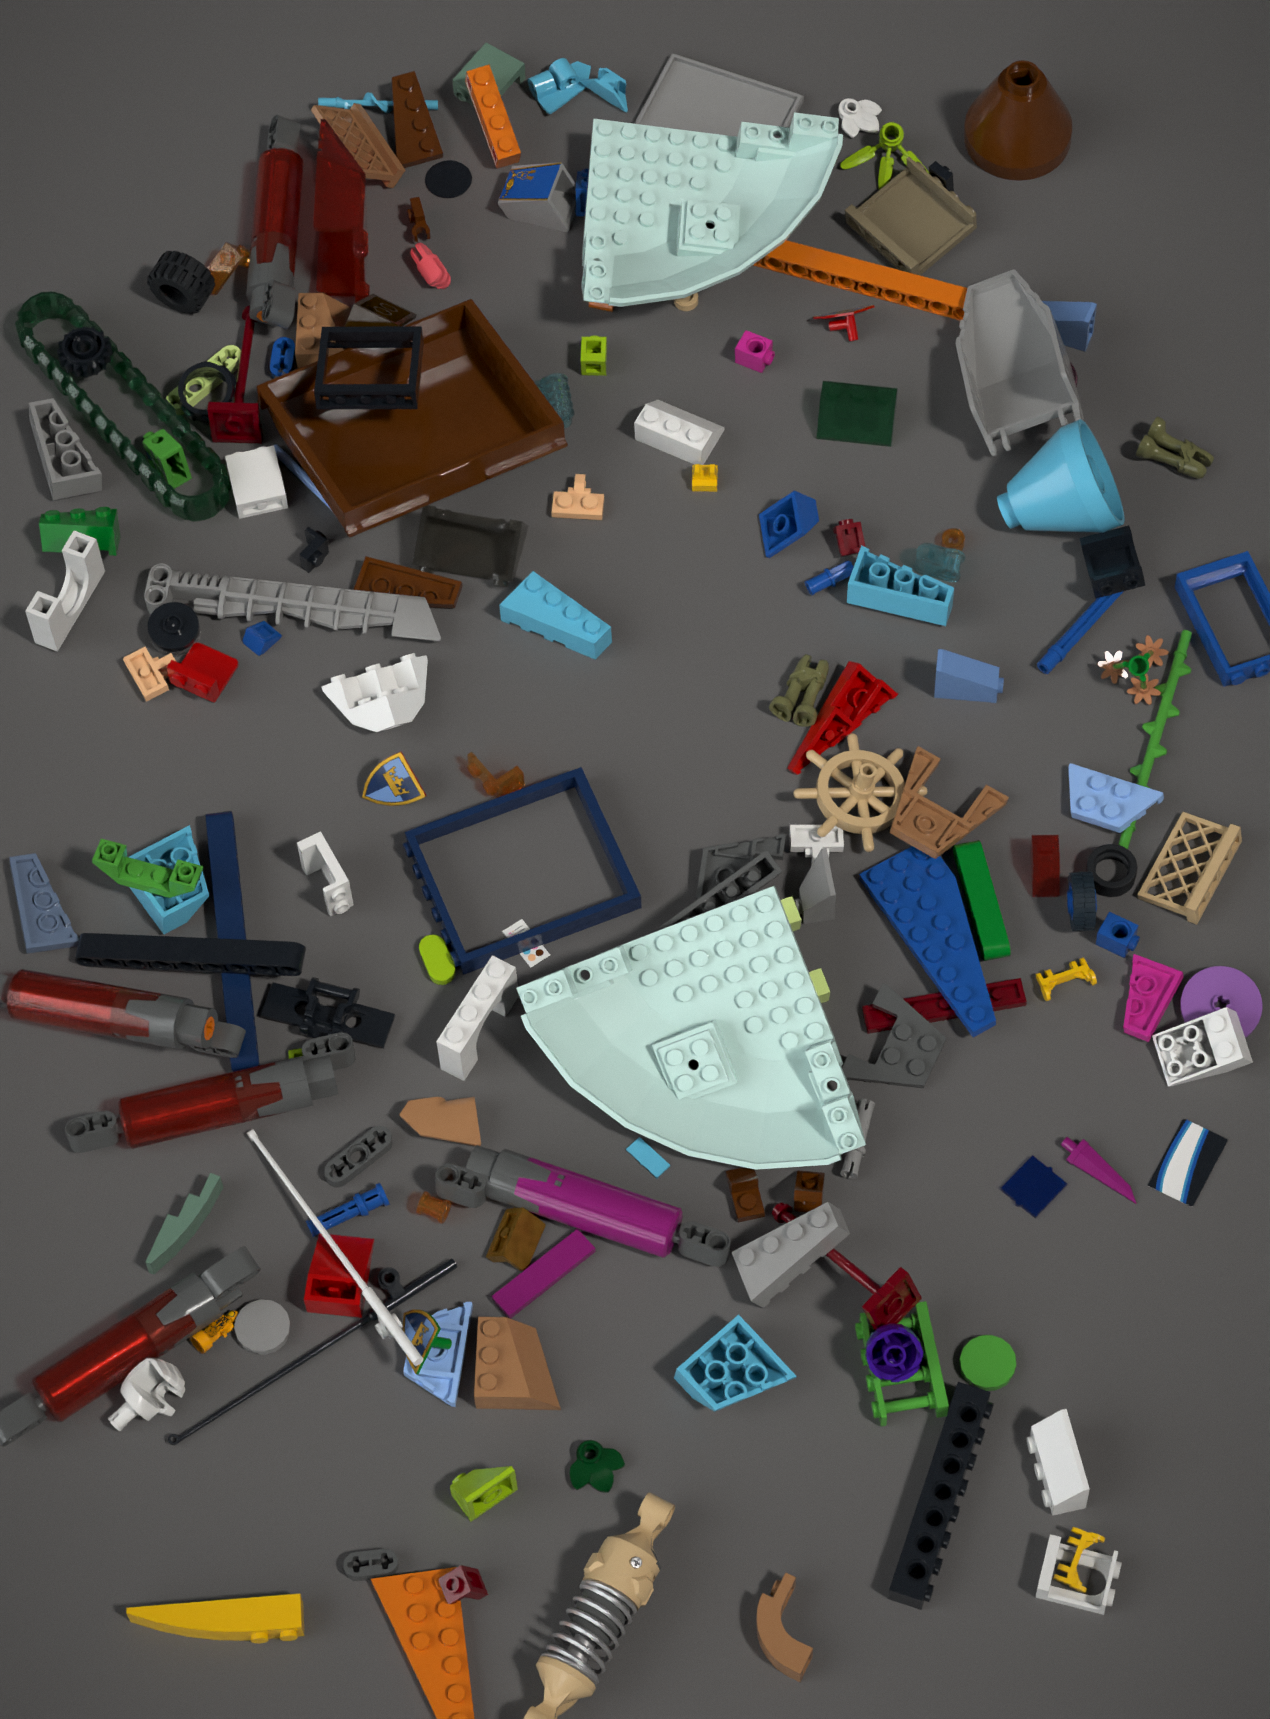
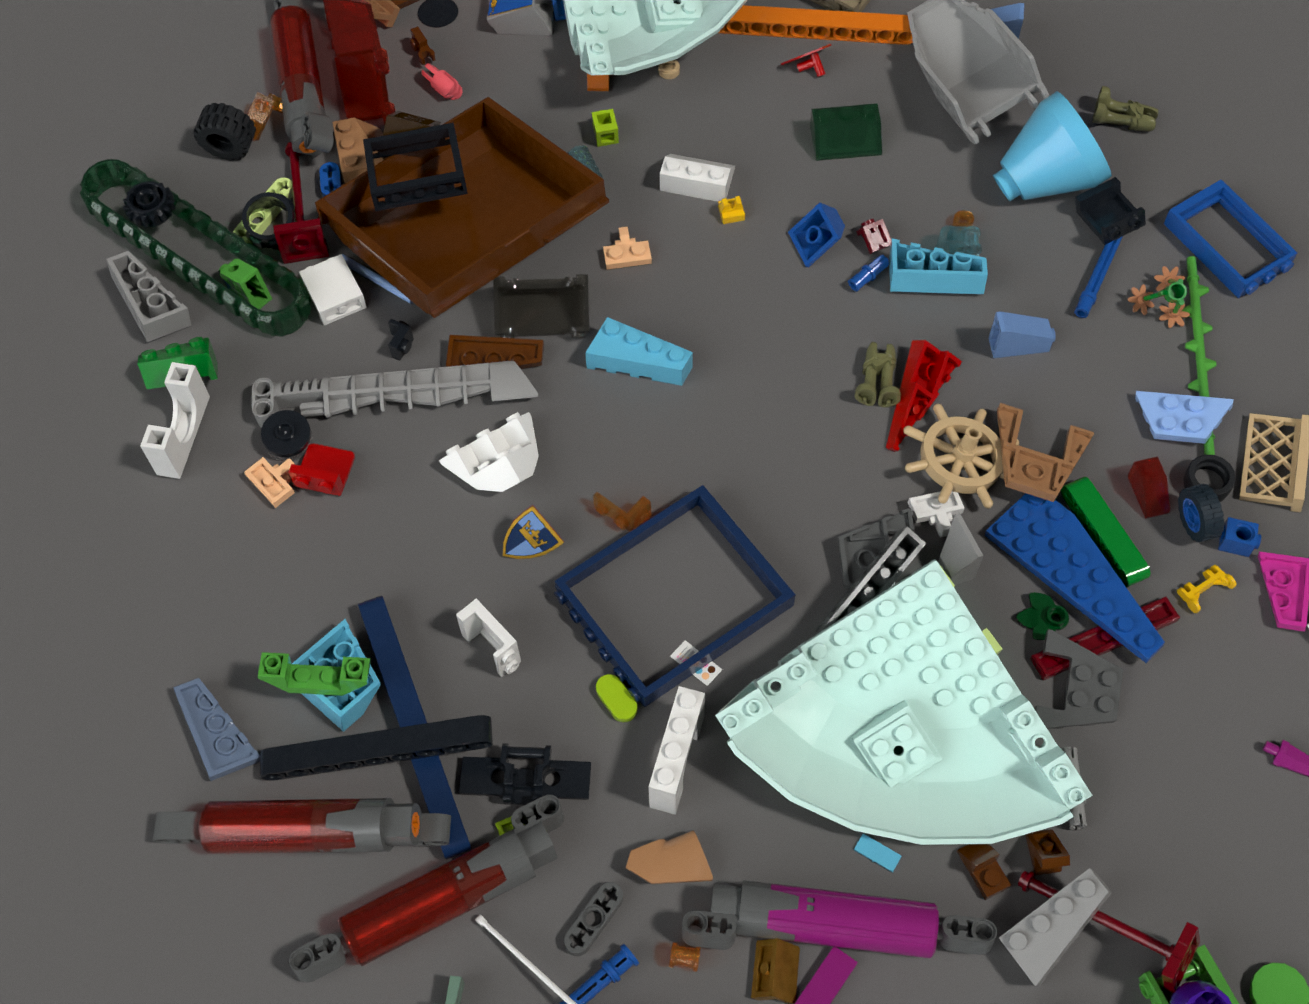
camera: 15 degrees left, 0 degrees up
(260, 637) = (369, 427): blue slope -> none
(752, 343) = (742, 99): dark pink brick -> none
(886, 969) = (1040, 614): none -> dark green plate
(1033, 1186) = (1252, 797): clear blue piece -> none

